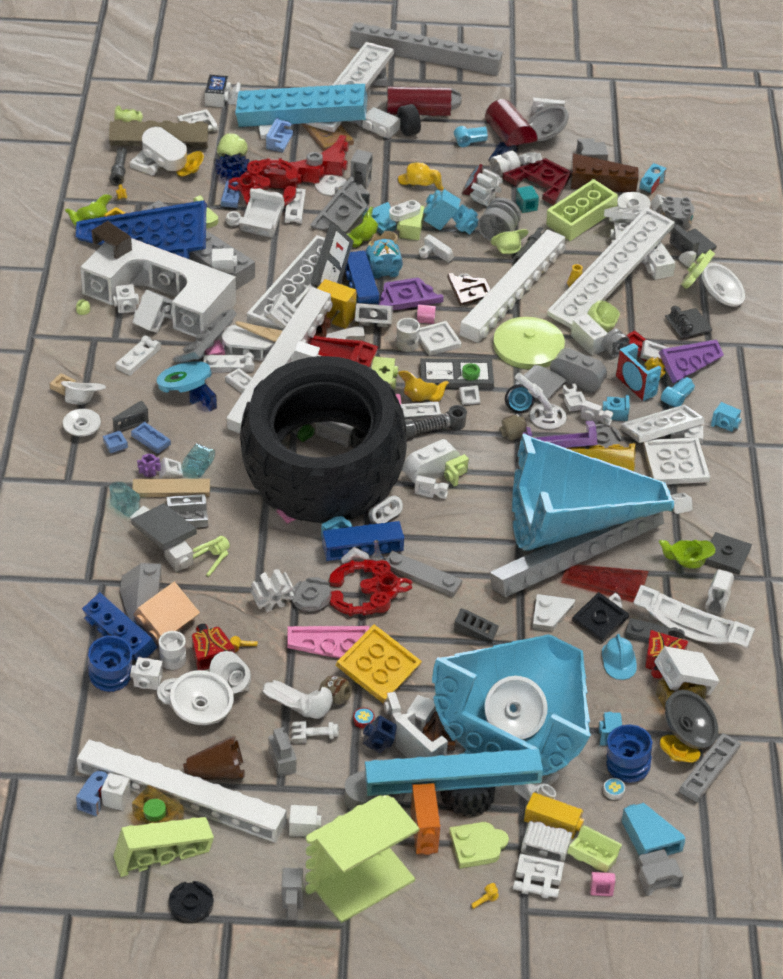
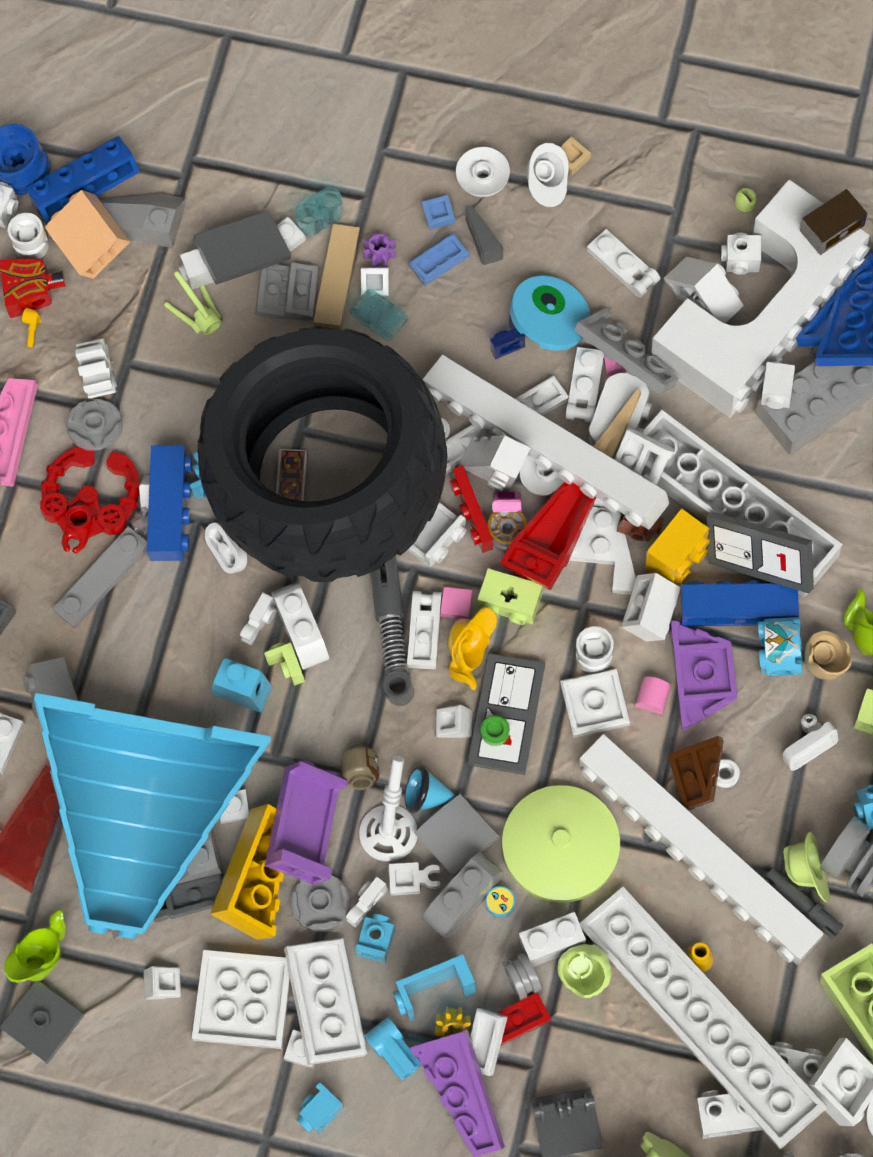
camera: 110 degrees right, 25 degrees up
(480, 478) = (239, 684): none -> medium azure torso

